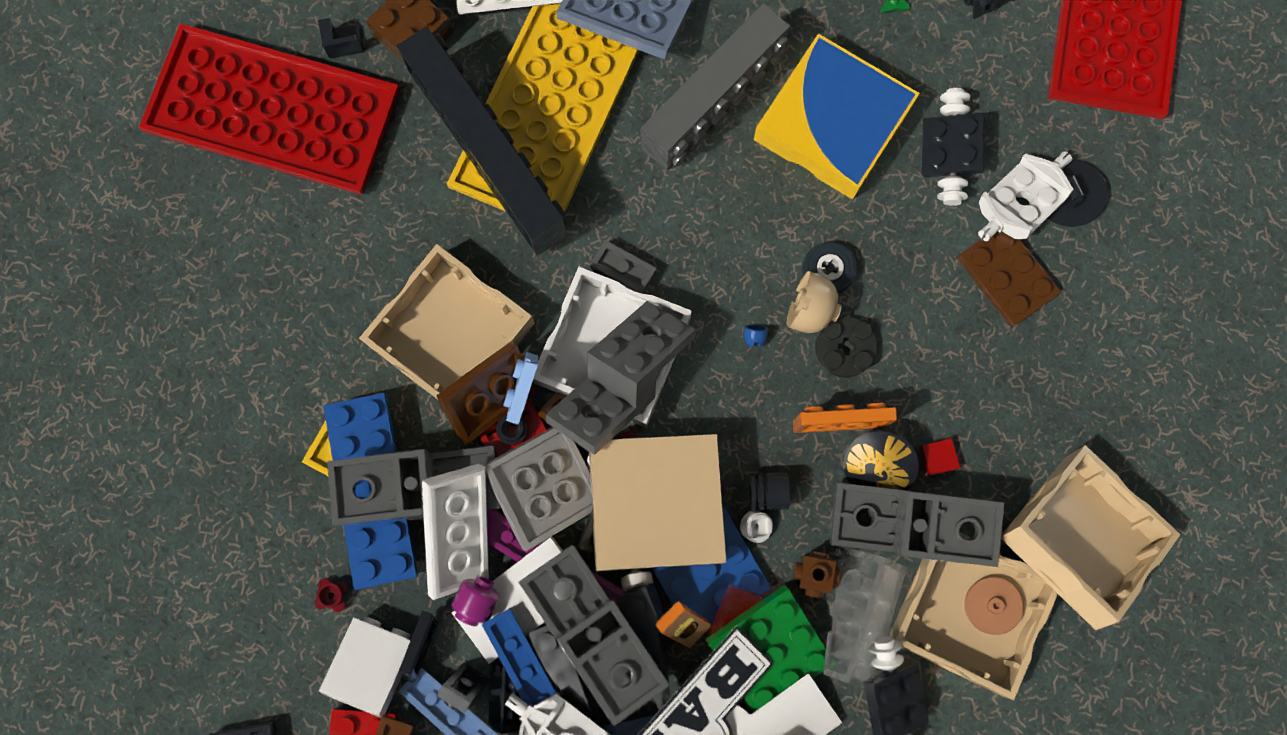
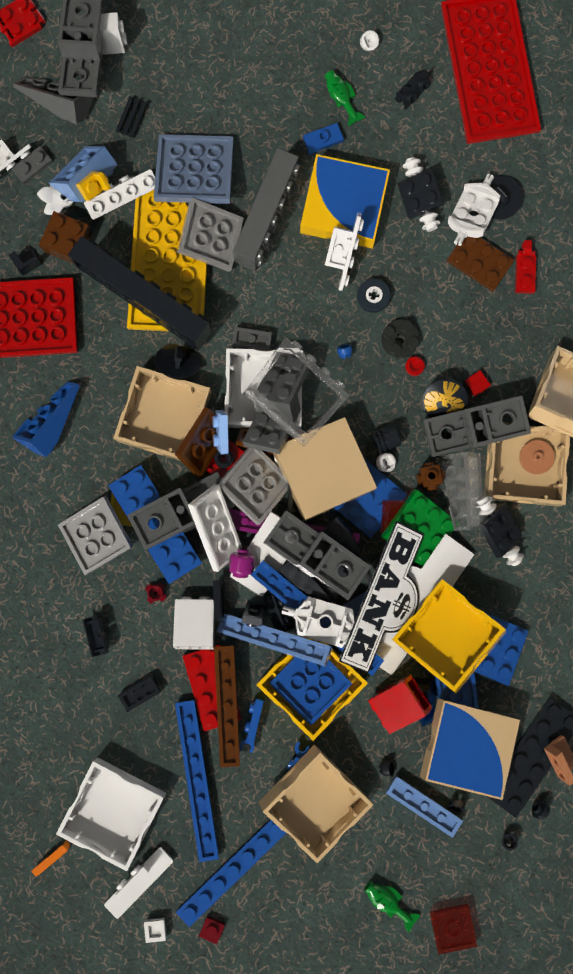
camera: 20 degrees left, 5 degrees up
(214, 627) = (95, 635): none -> black hinge
(267, 289) = (45, 429): none -> blue wedge
(275, 474) = (95, 535): none -> light grey plate
(500, 260) = (177, 361): none -> black shield
(618, 93) = (210, 234): none -> light grey plate
(635, 580) = (328, 518): white tile -> none
(638, 442) = (278, 416): none -> clear windscreen
(683, 624) = (365, 532): tile -> none
(804, 181) = (341, 248): none -> white bracket
(814, 304) = (372, 320): tan cylinder -> none
(837, 17) = (323, 138): none -> blue plate
(844, 418) = (414, 381): orange plate -> none
(854, 394) = (414, 366): none -> red tile
(1073, 312) = (525, 269): none -> red hinge

